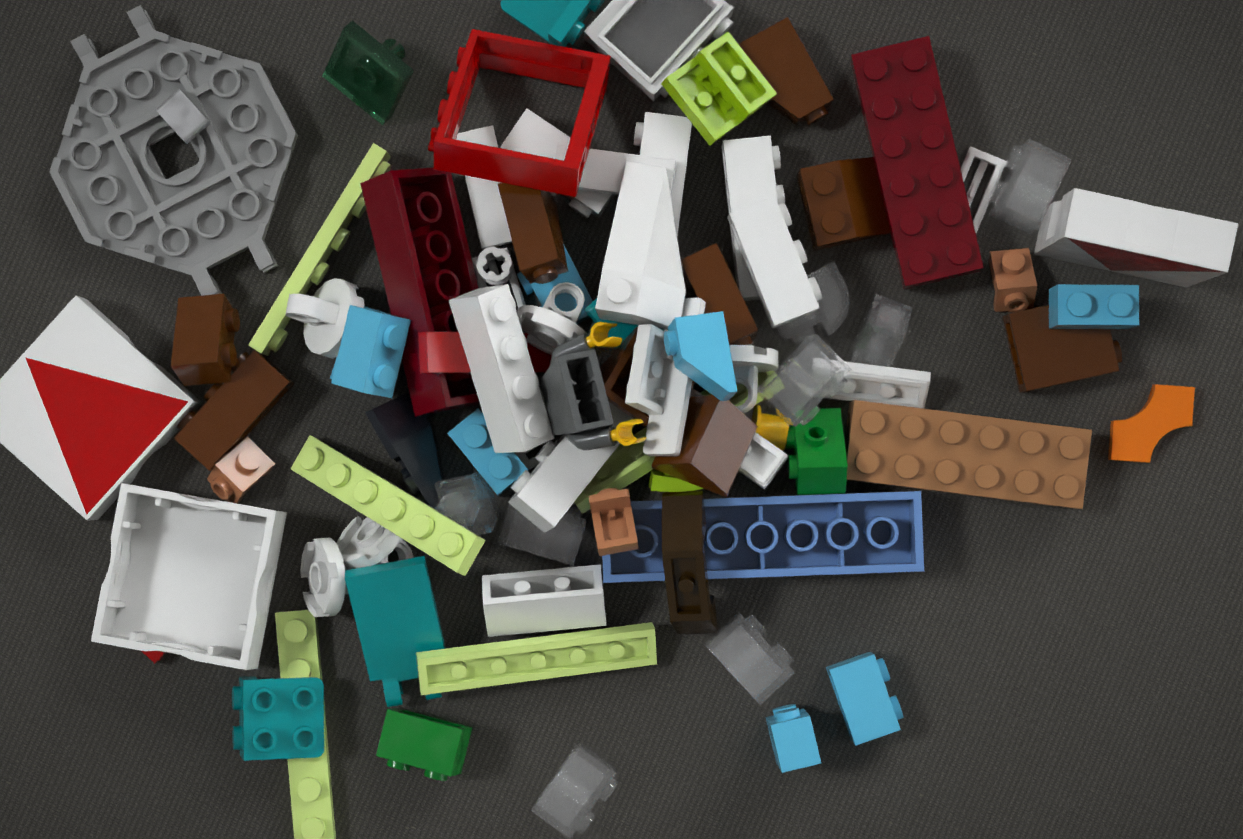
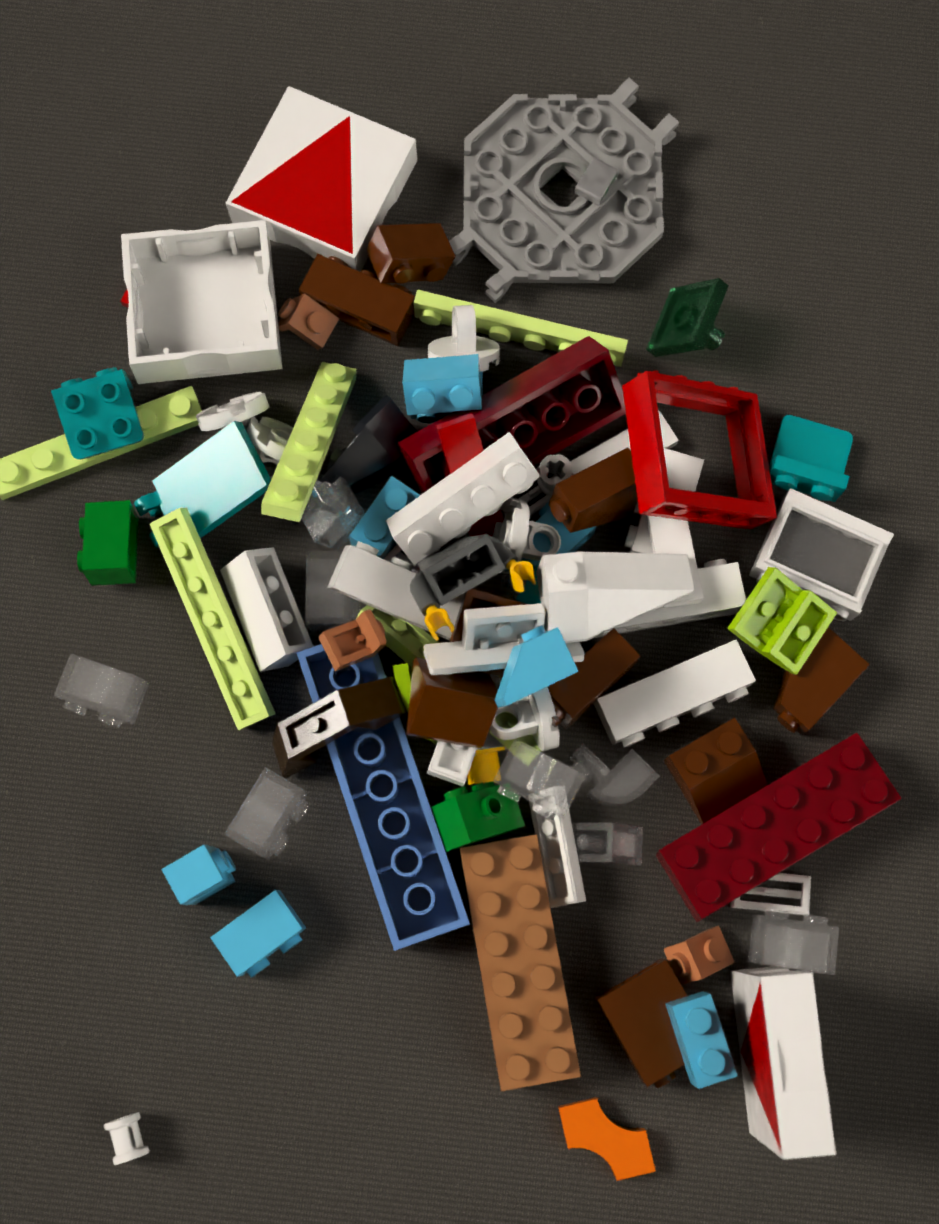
camera: 75 degrees right, 10 degrees down
(775, 261) = (641, 716): white brick -> none

